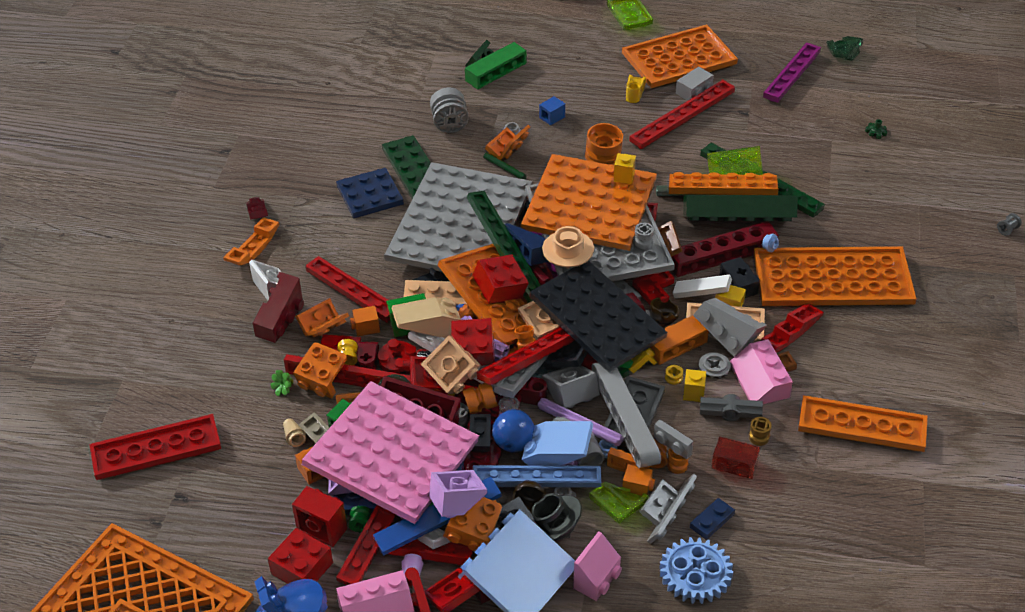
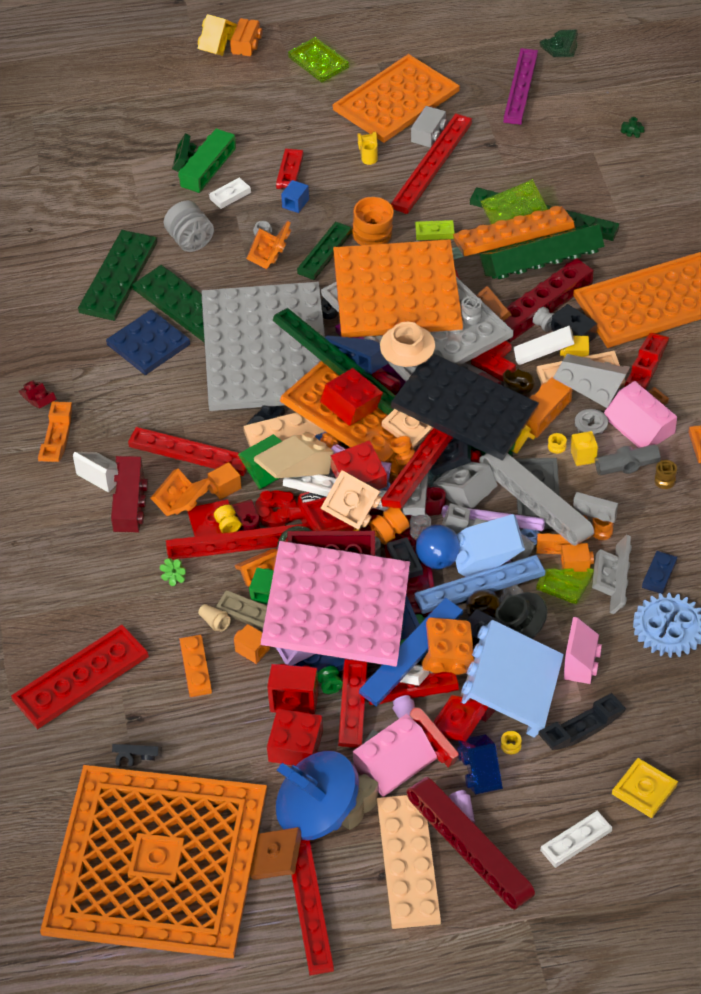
camera: 20 degrees left, 5 degrees up
(170, 530) = (146, 752): none -> black plate
(255, 469) = (195, 666): none -> orange plate
(319, 369) = (210, 545): orange bracket -> none
(370, 137) = (117, 274): none -> dark green plate
(455, 491) = (426, 622): lavender slope -> none
(500, 95) = (230, 193): none -> white plate
(504, 166) = (275, 272): dark green bar -> none
(537, 167) = (323, 251): none -> dark green plate
(544, 411) = (456, 518): none -> light grey brick
(561, 86) = (289, 167): none -> red plate
(624, 168) = (421, 243): yellow brick -> none
(660, 167) = (434, 230): none -> lime plate
(713, 264) = (543, 319): none -> light grey wheel
(735, 457) = (655, 507): clear red brick -> none
(770, 242) = (590, 280): light blue plate -> none

